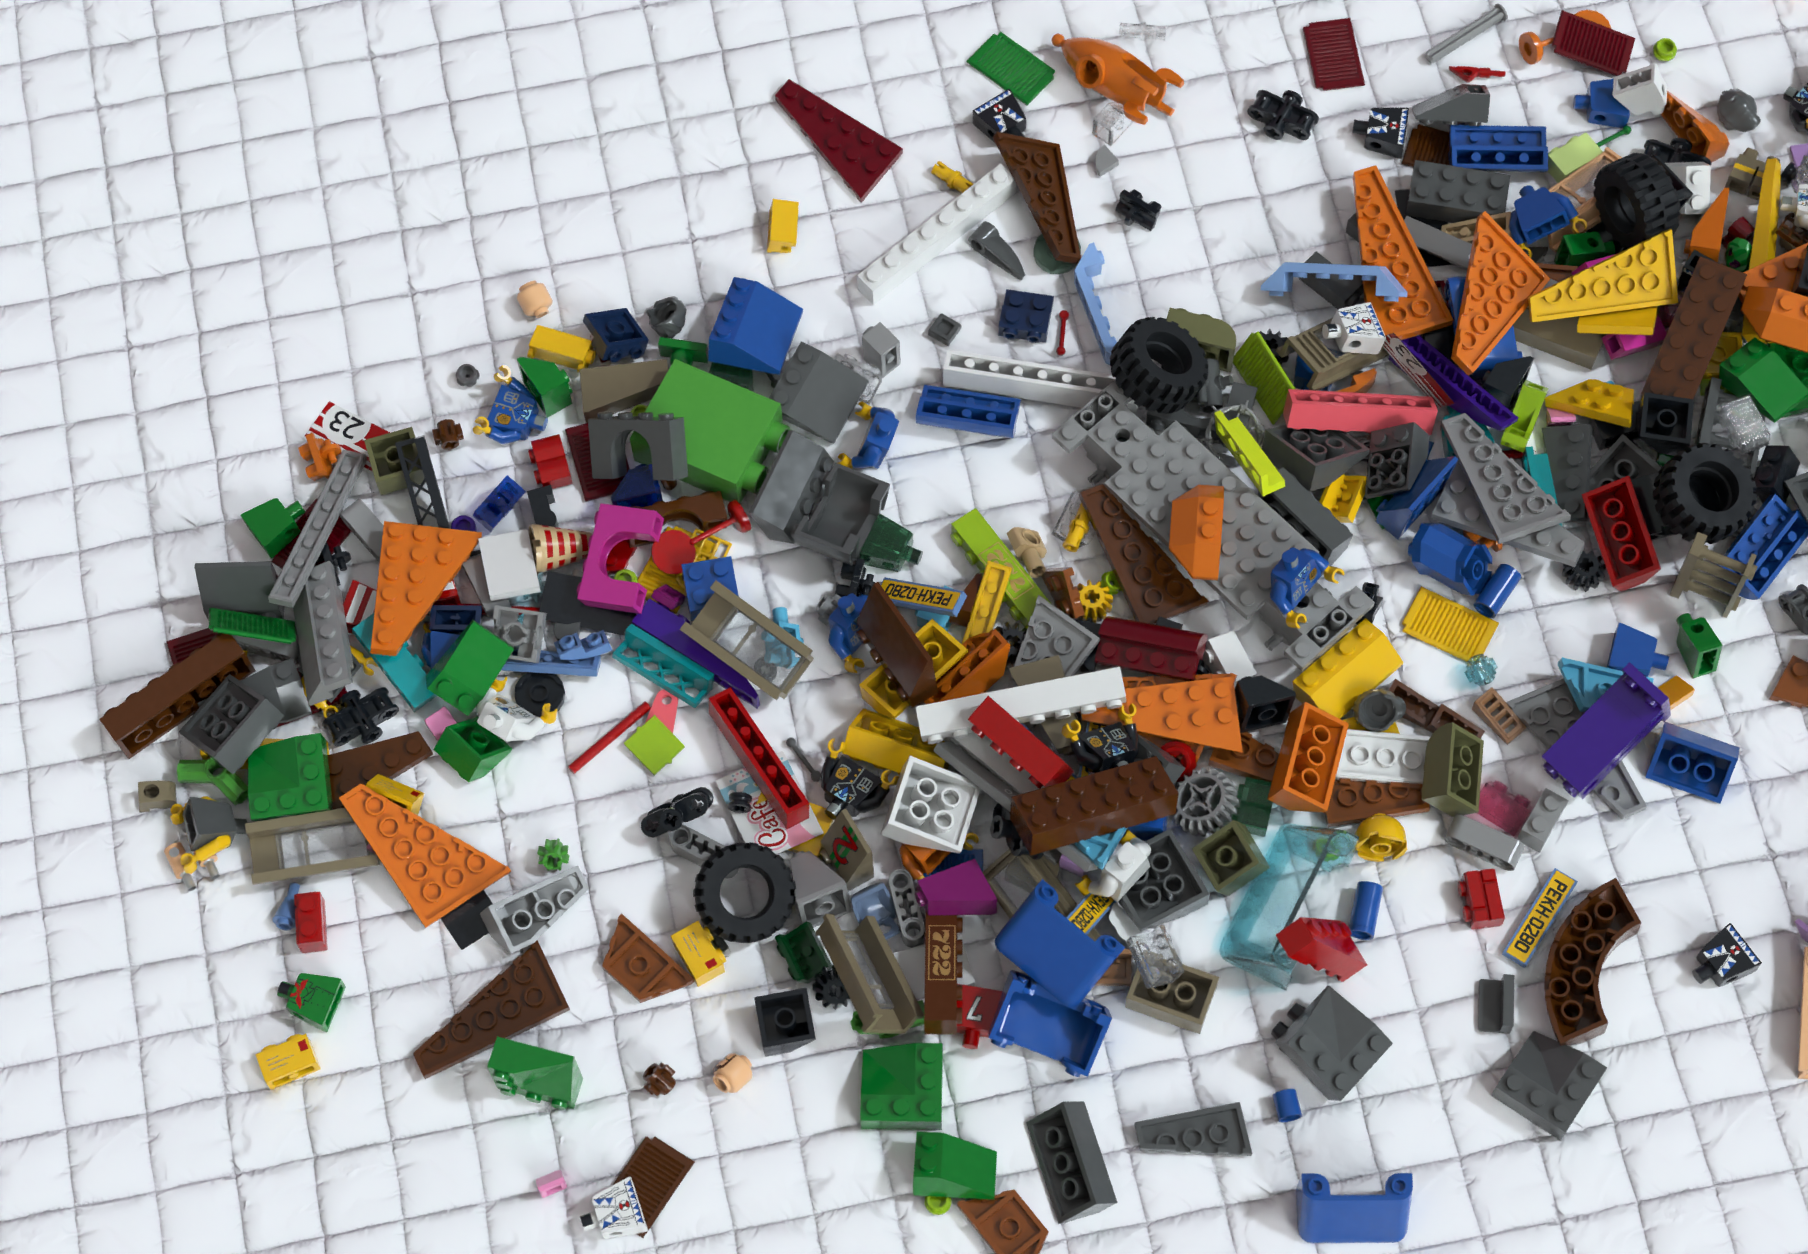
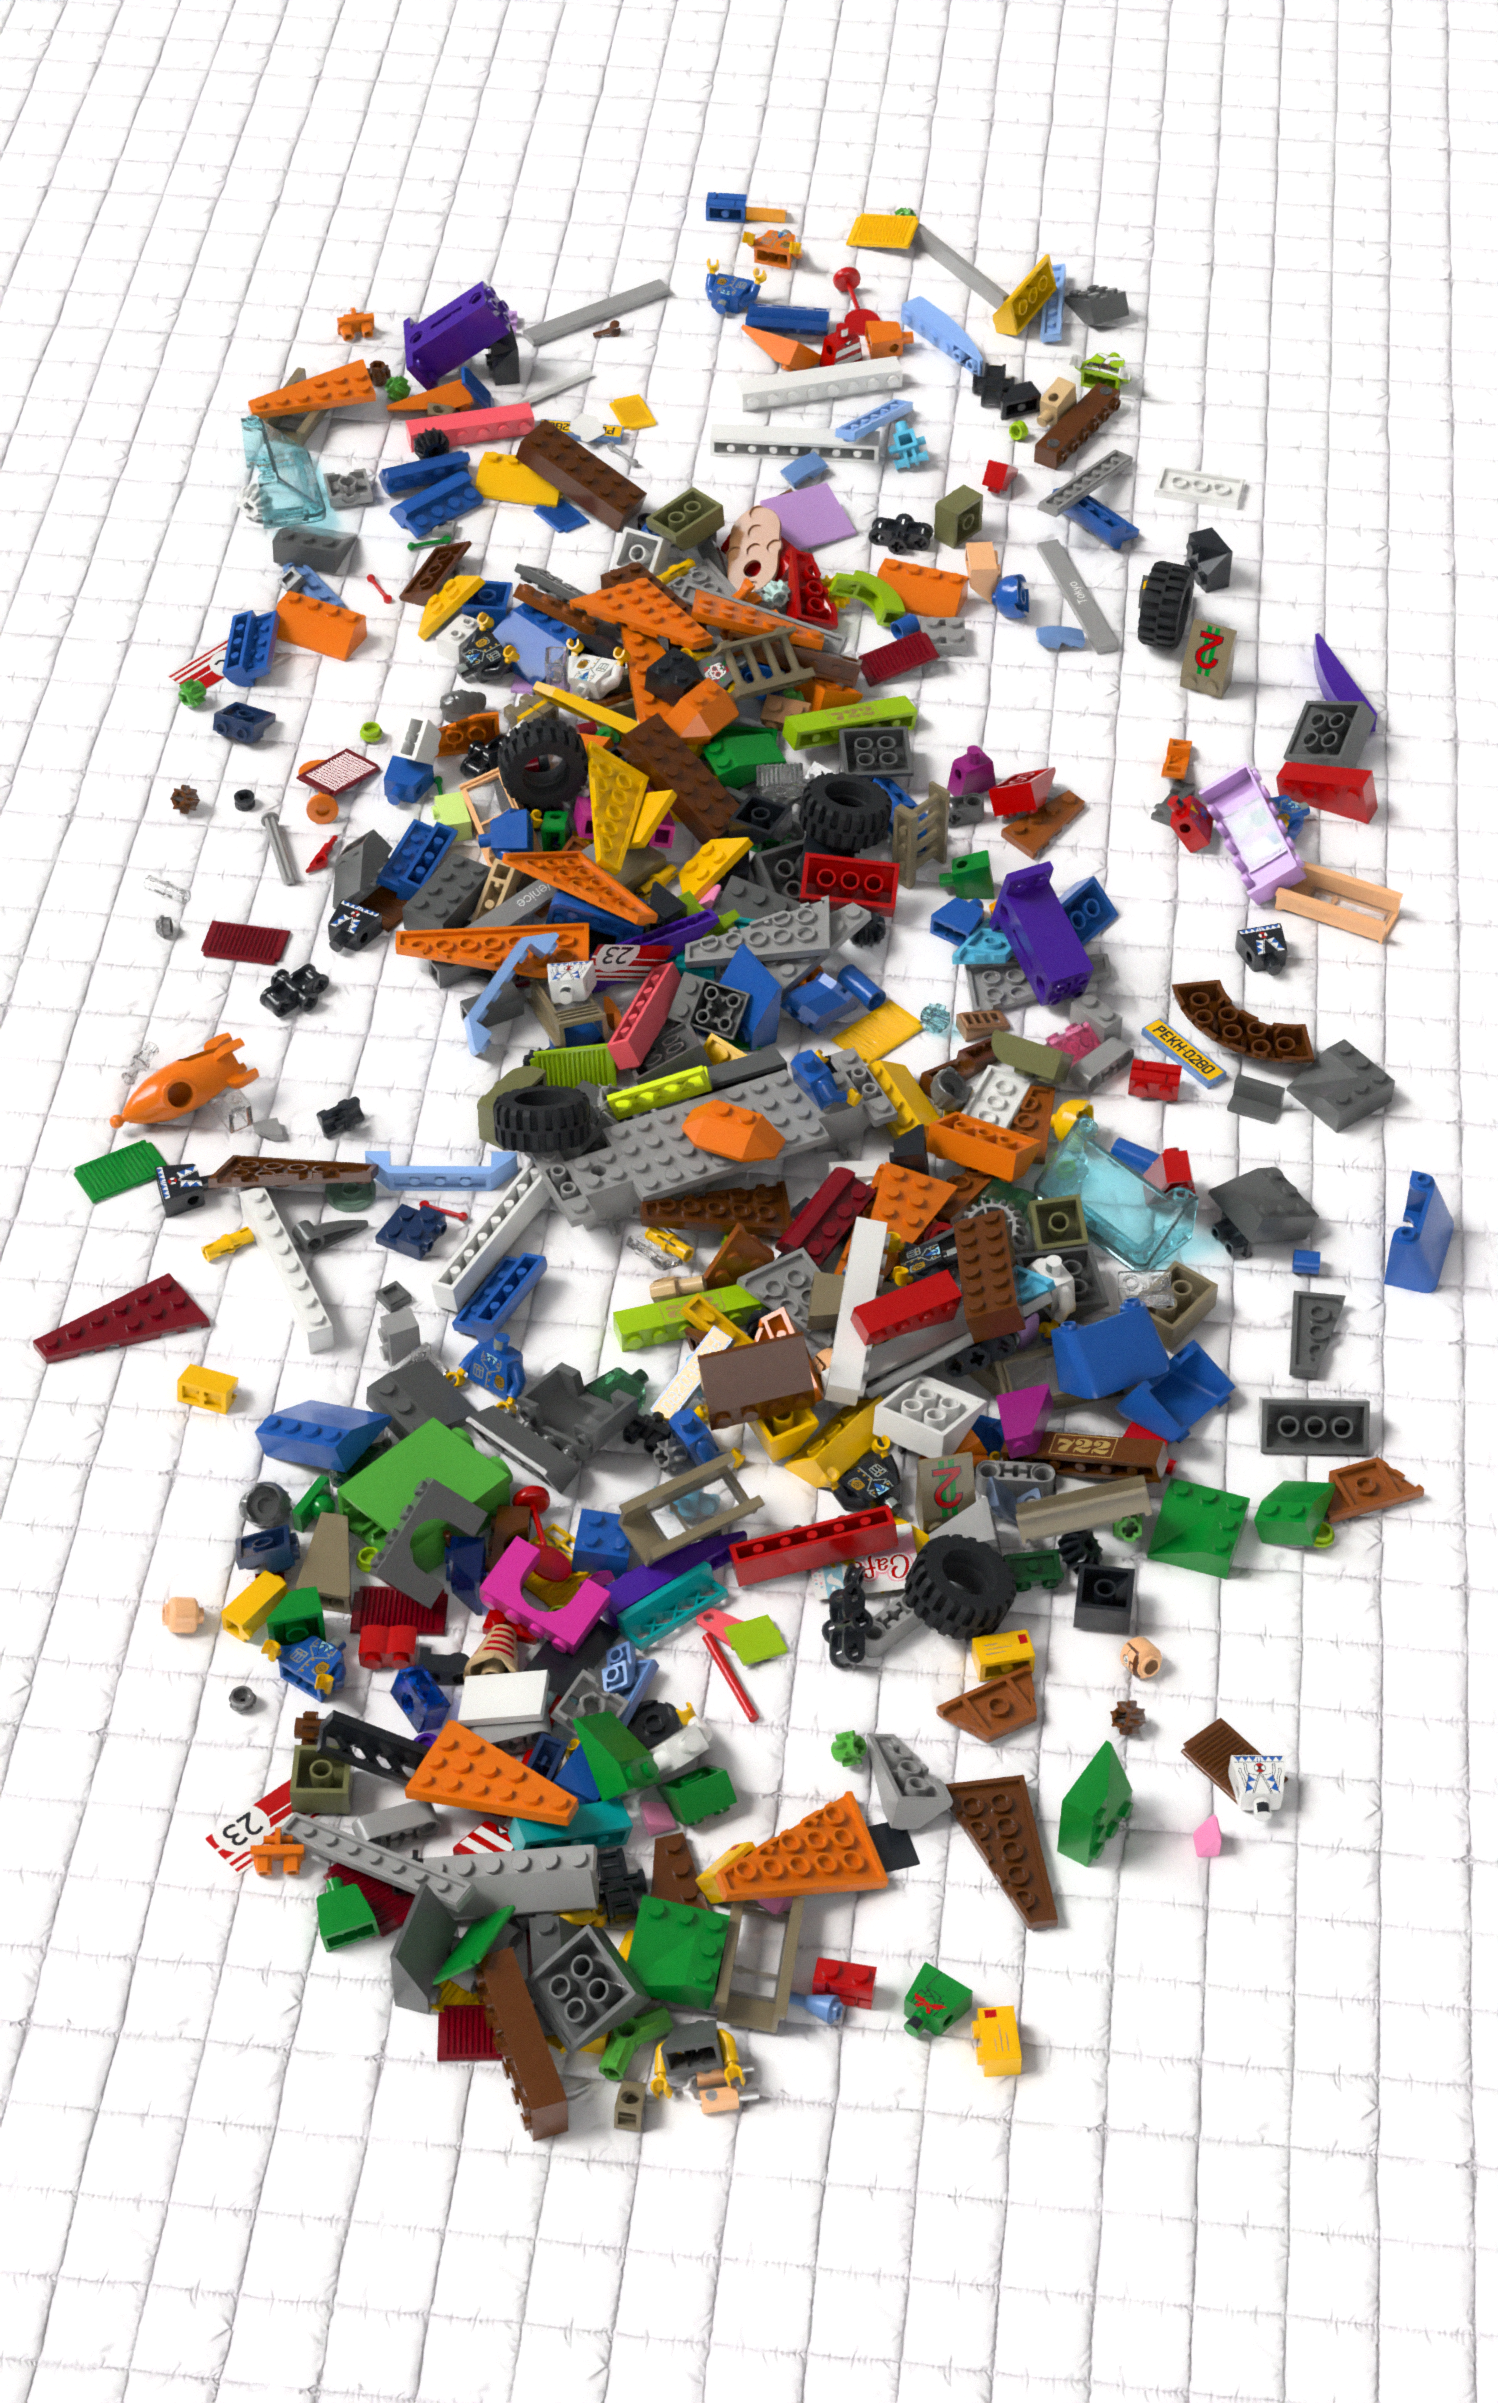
camera: 75 degrees left, 20 degrees down
(1567, 365) = (662, 878): none -> yellow pin

